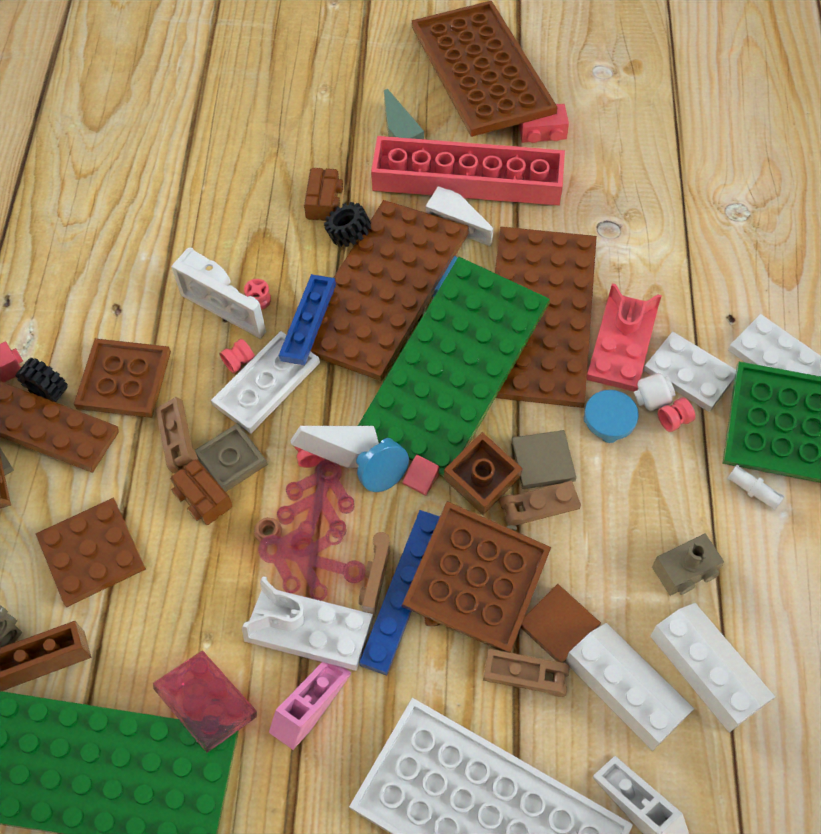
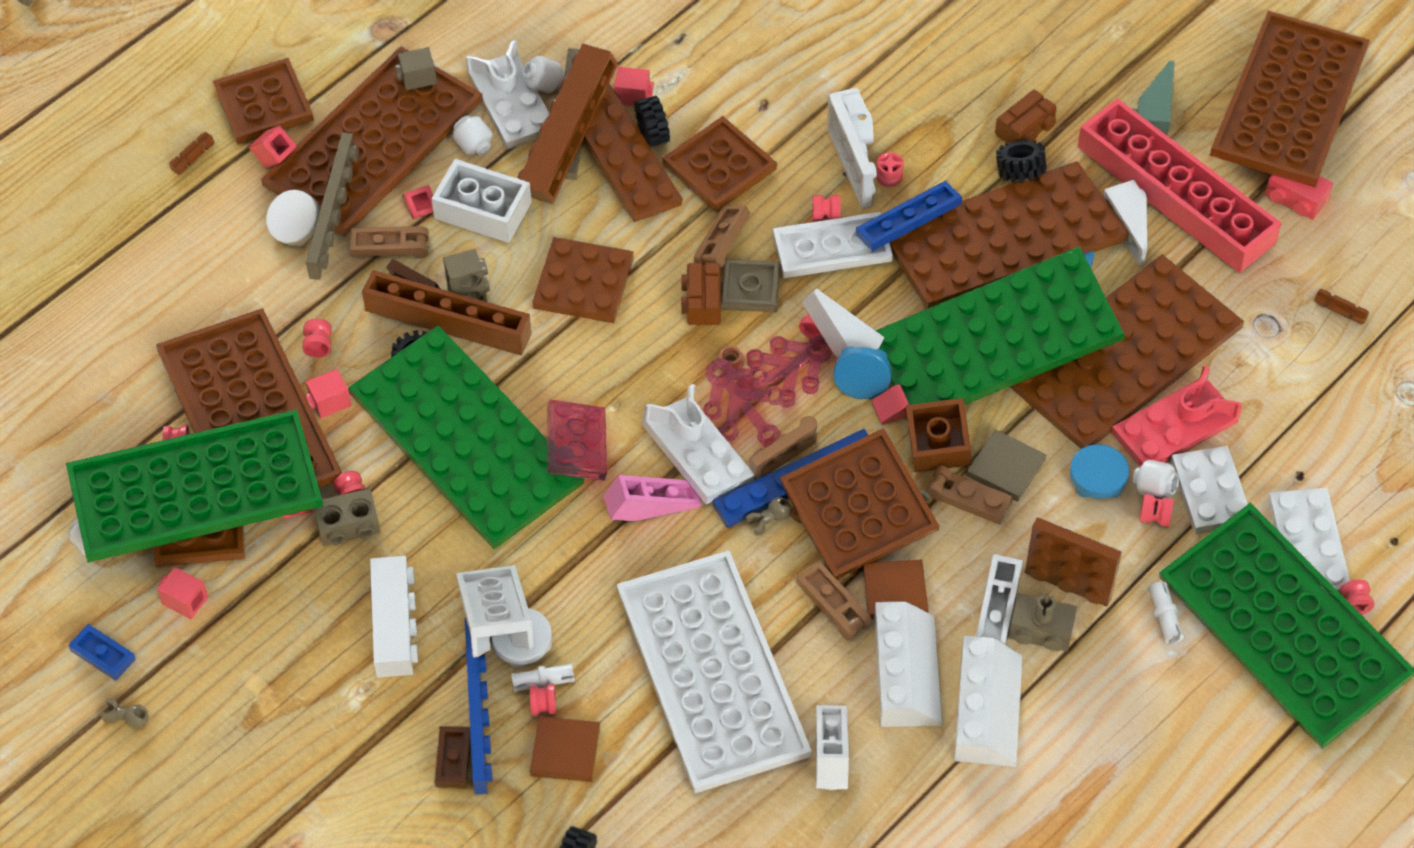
camera: 40 degrees right, 5 degrees down
(414, 633) = (775, 510): none -> dark tan arm
(642, 571) = (999, 597): none -> white slope
(643, 183) = (1341, 306): none -> dark orange axle
(677, 501) = (1072, 562): none -> dark orange plate

